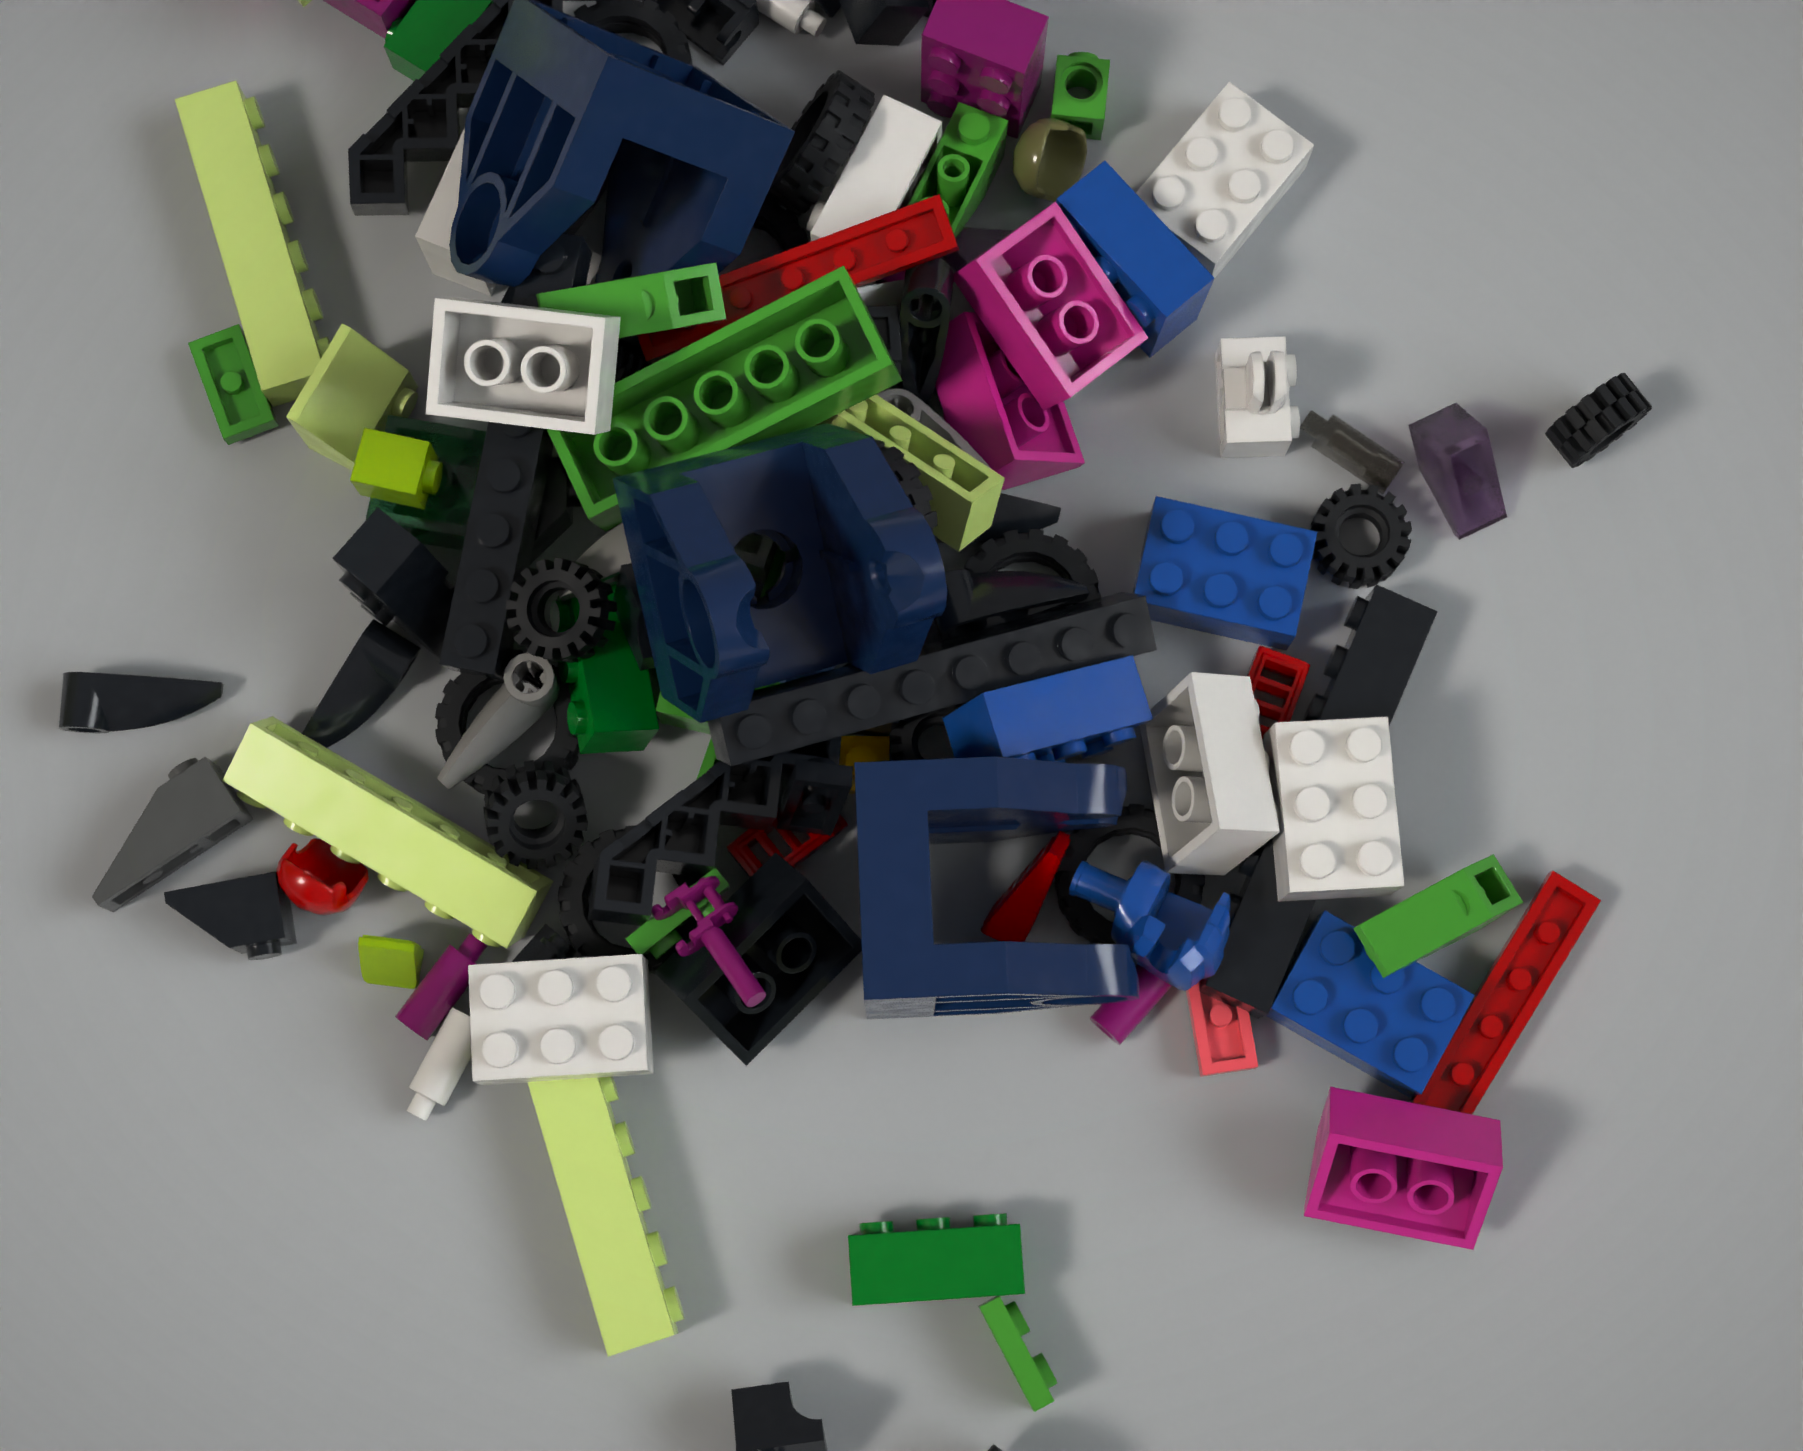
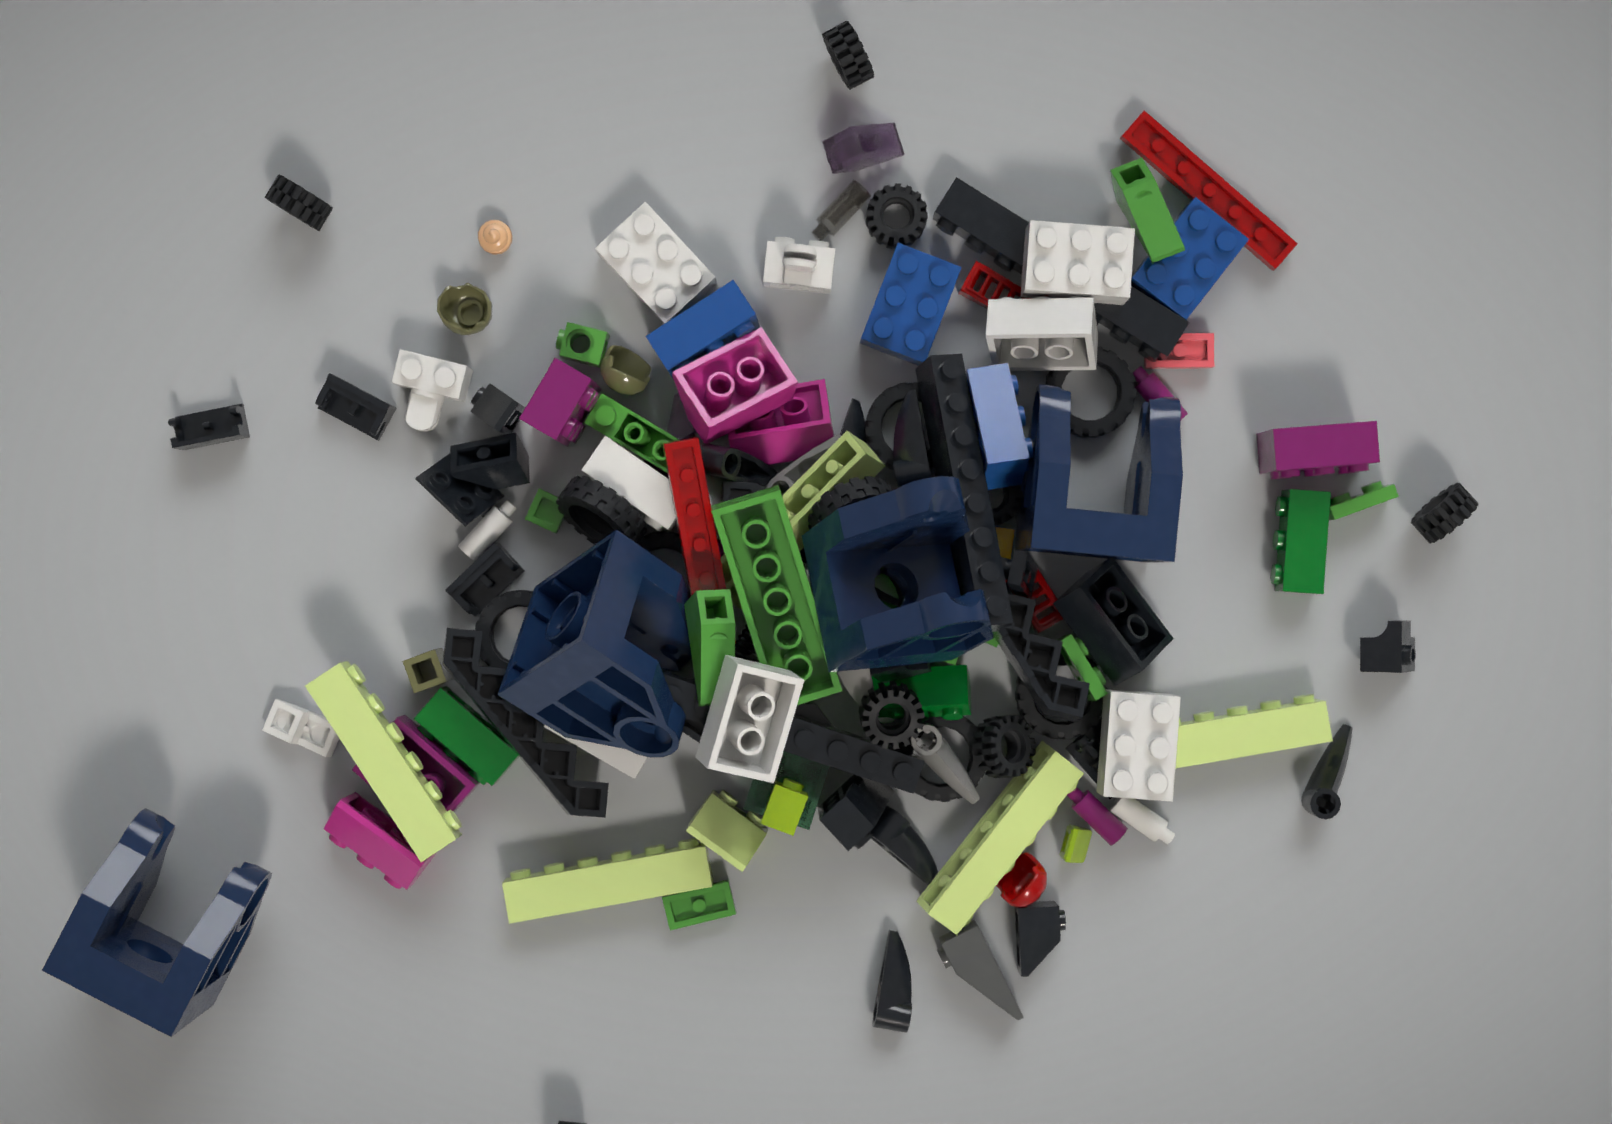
camera: 85 degrees left, 10 degrees up
(553, 1370) = (1328, 776): none -> black piece
(711, 936) = (1109, 646): magenta piece -> none
(810, 72) = (545, 511): none -> bright green plate
(1020, 904) = (1096, 458): red slope -> none
(1093, 1262) = (1318, 449): none -> magenta brick
(1163, 930) = (1129, 378): blue piece -> none
(1403, 1168) = (1289, 256): dark pink slope -> none

